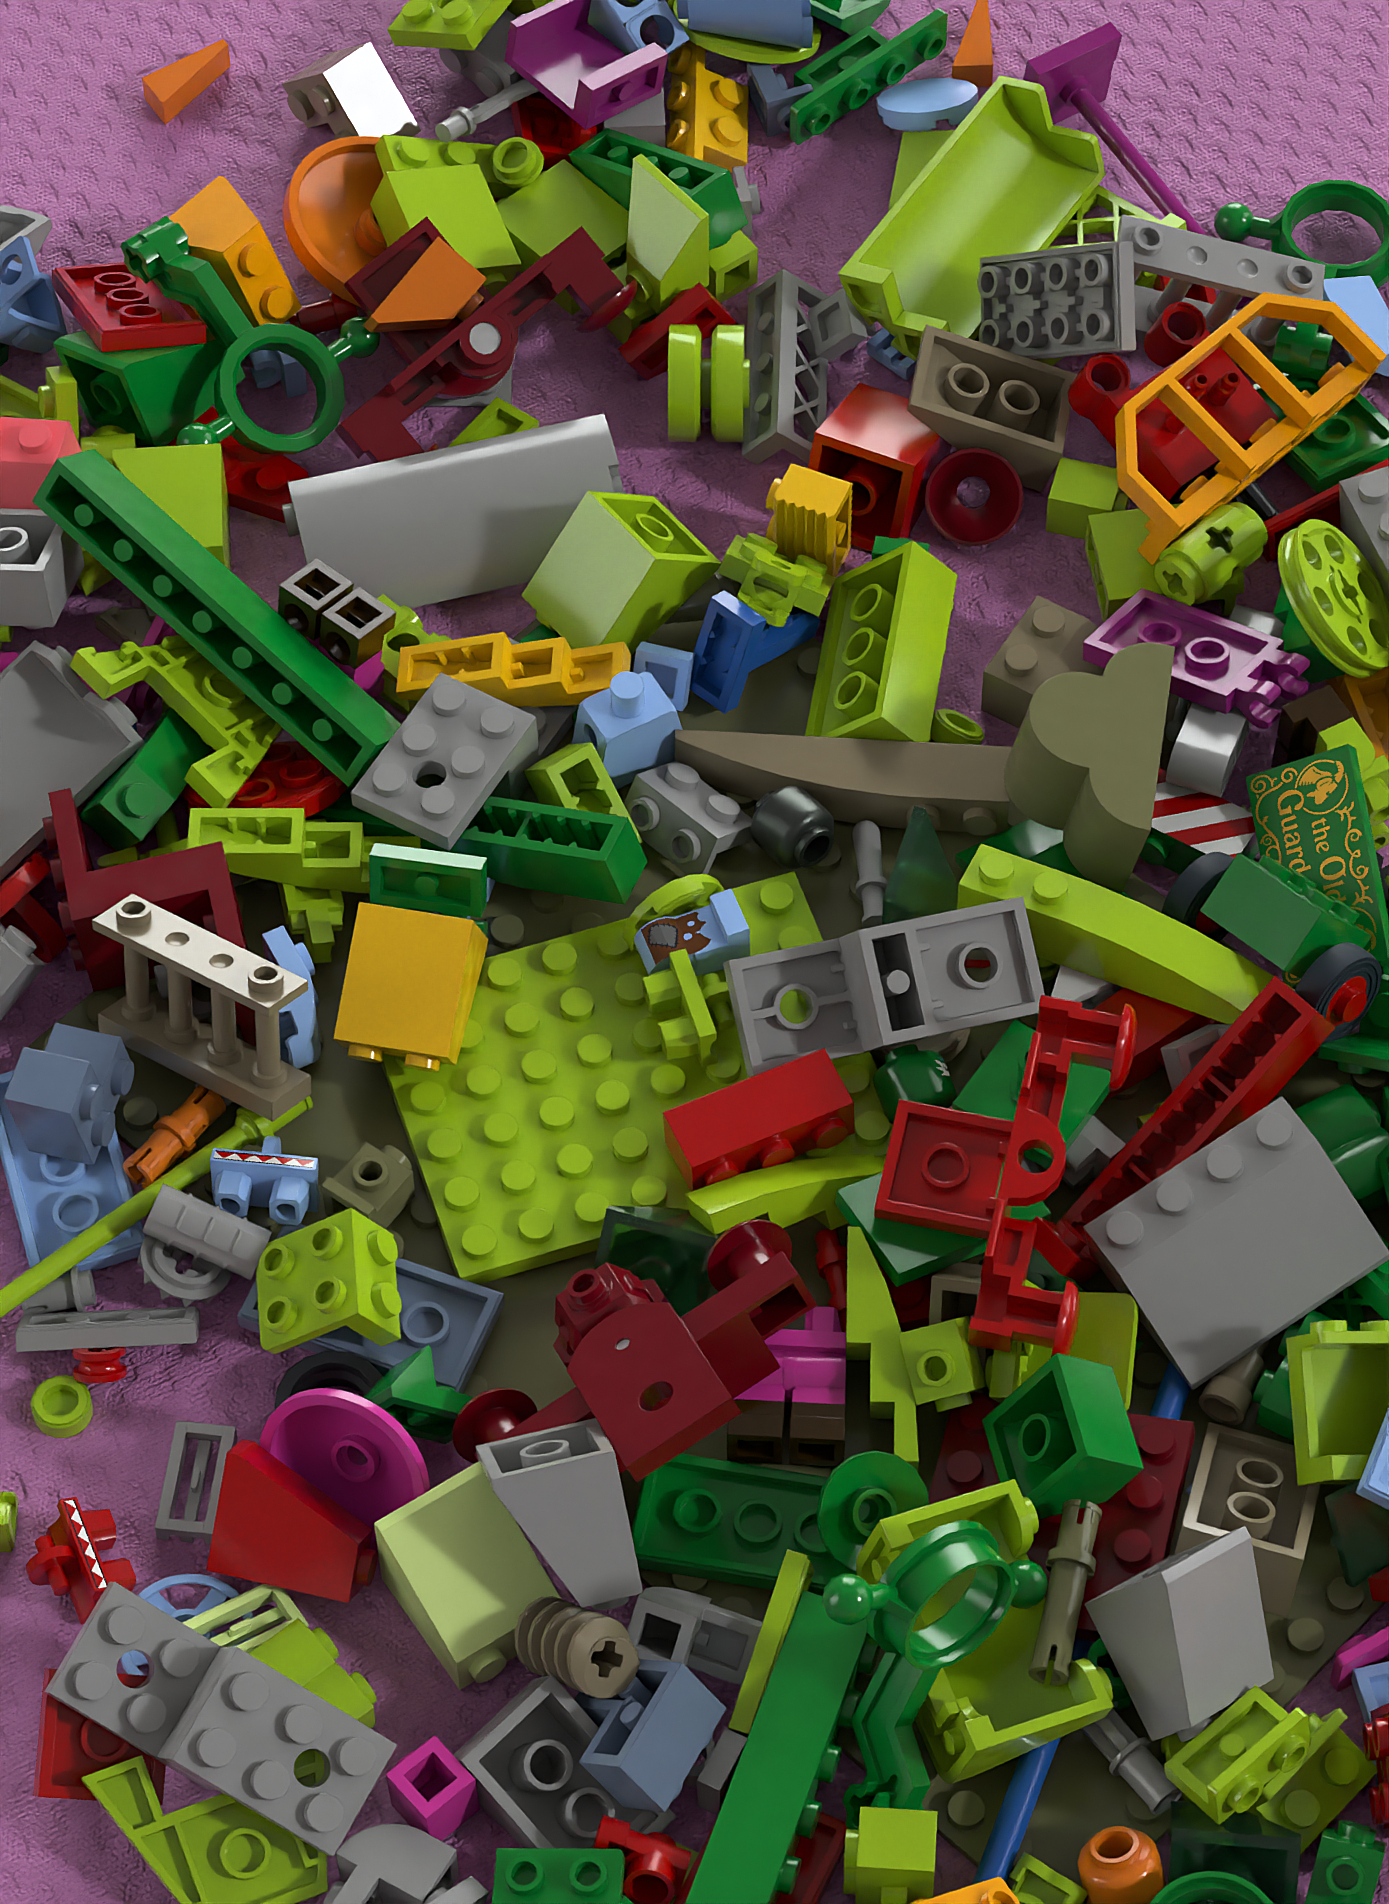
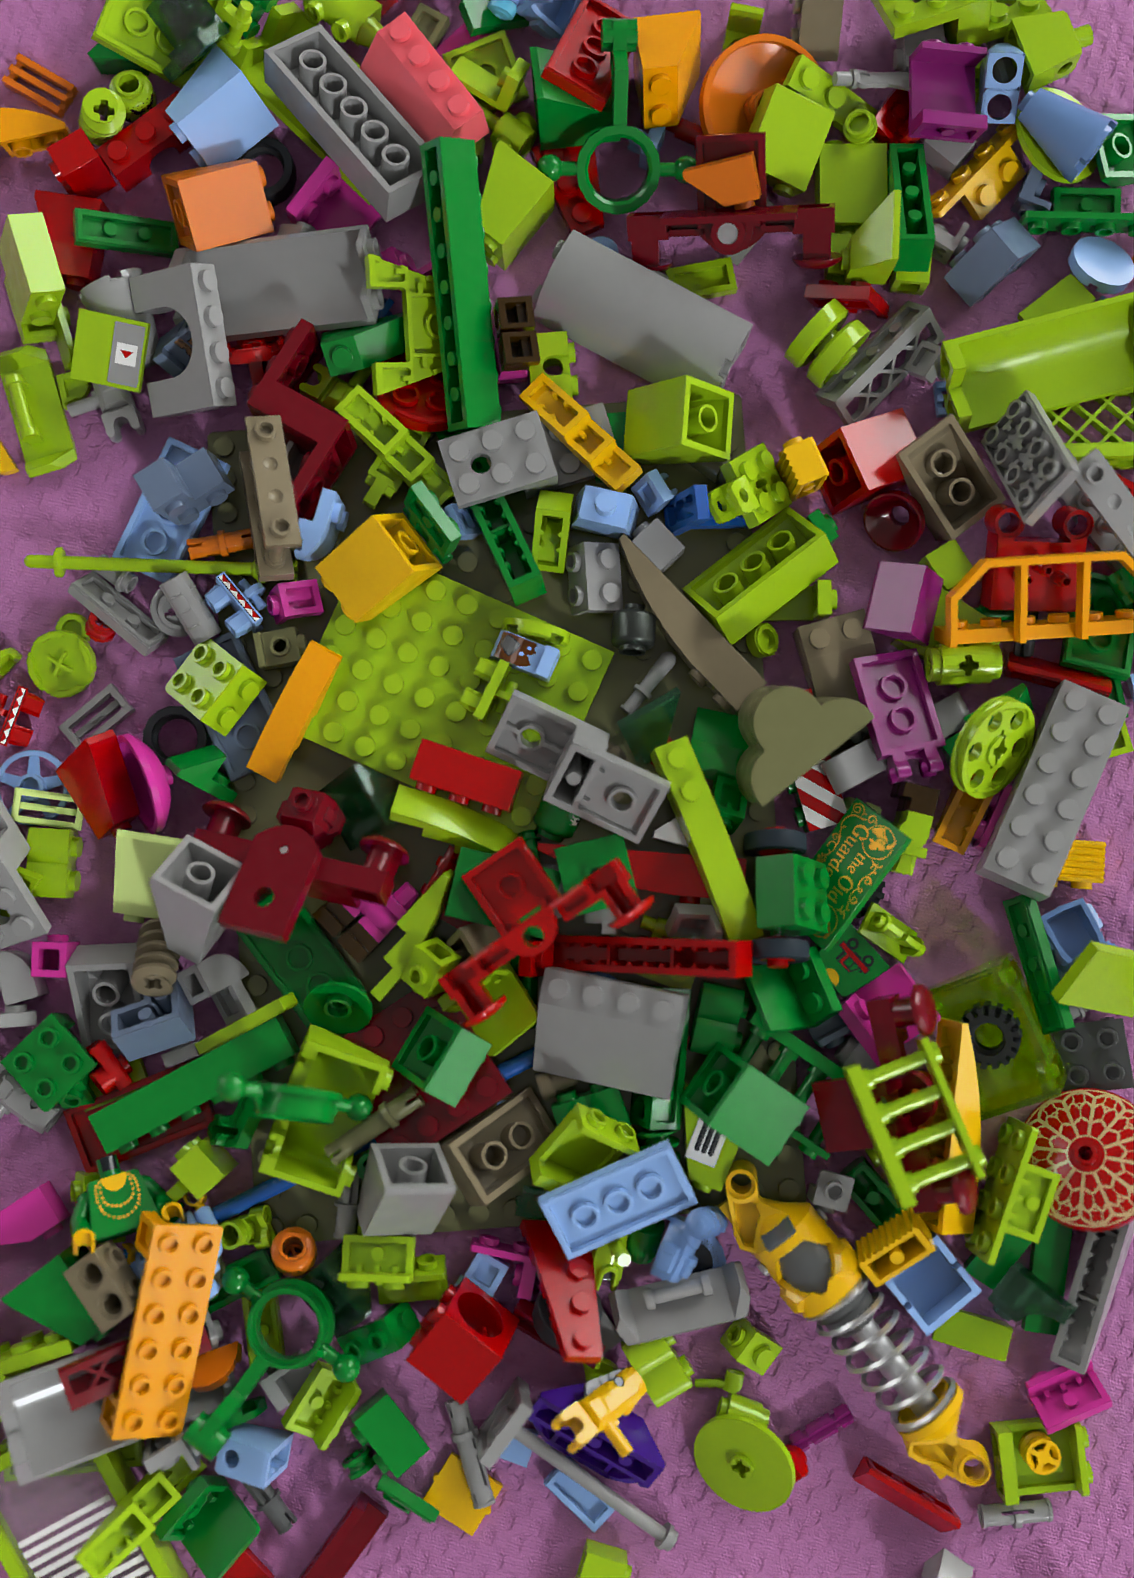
camera: 45 degrees right, 30 degrees up
(86, 1449) = (61, 663): none -> lime tile
(268, 175) = (742, 22): none -> lime bracket
(332, 1124) = (294, 600): none -> dark pink bracket
(467, 1225) = (294, 711): none -> light orange slope
(726, 709) = (658, 544): none -> light grey brick
(802, 184) = (996, 254): none -> sand blue brick
(975, 639) = (811, 604): none -> lime bracket
(1074, 547) = (903, 601): none -> slope

